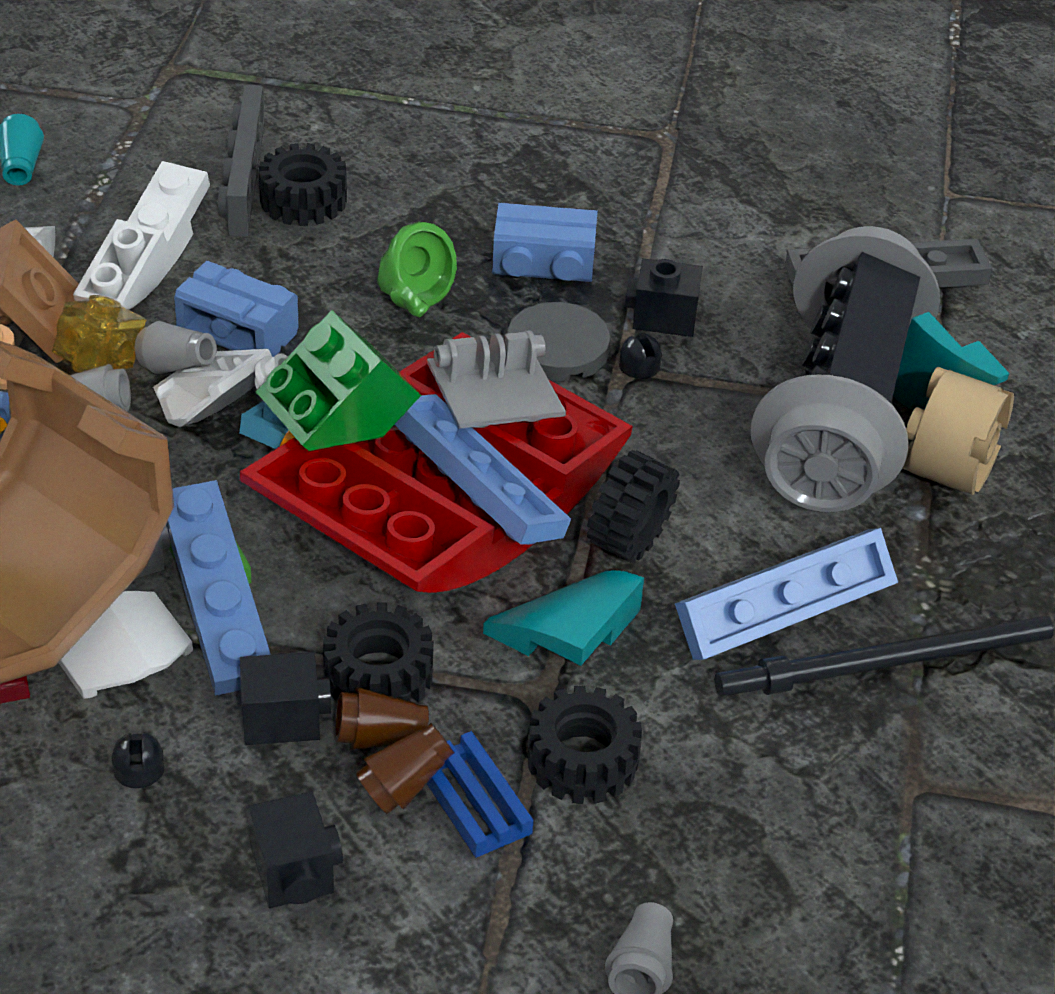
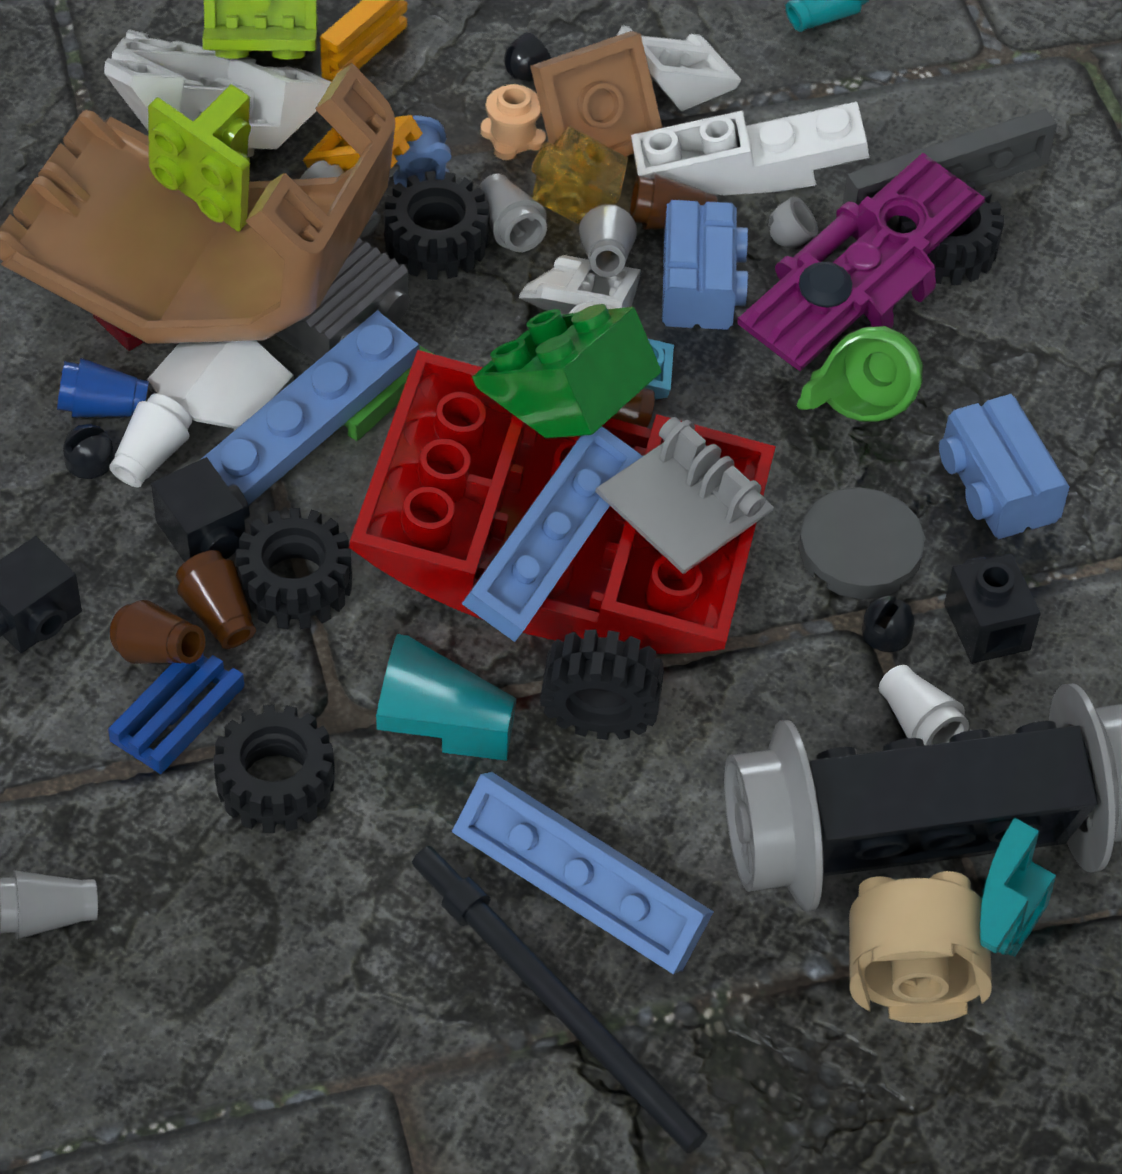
camera: 65 degrees right, 10 degrees up
(78, 724) = (99, 391): none -> blue cone
(155, 301) = (654, 193): none -> reddish brown cone
(164, 704) = (150, 439): none -> white cone
(231, 253) = (792, 223): none -> light grey hinge
(335, 242) = (822, 299): none -> magenta piece
(735, 365) = (921, 707): none -> white cone

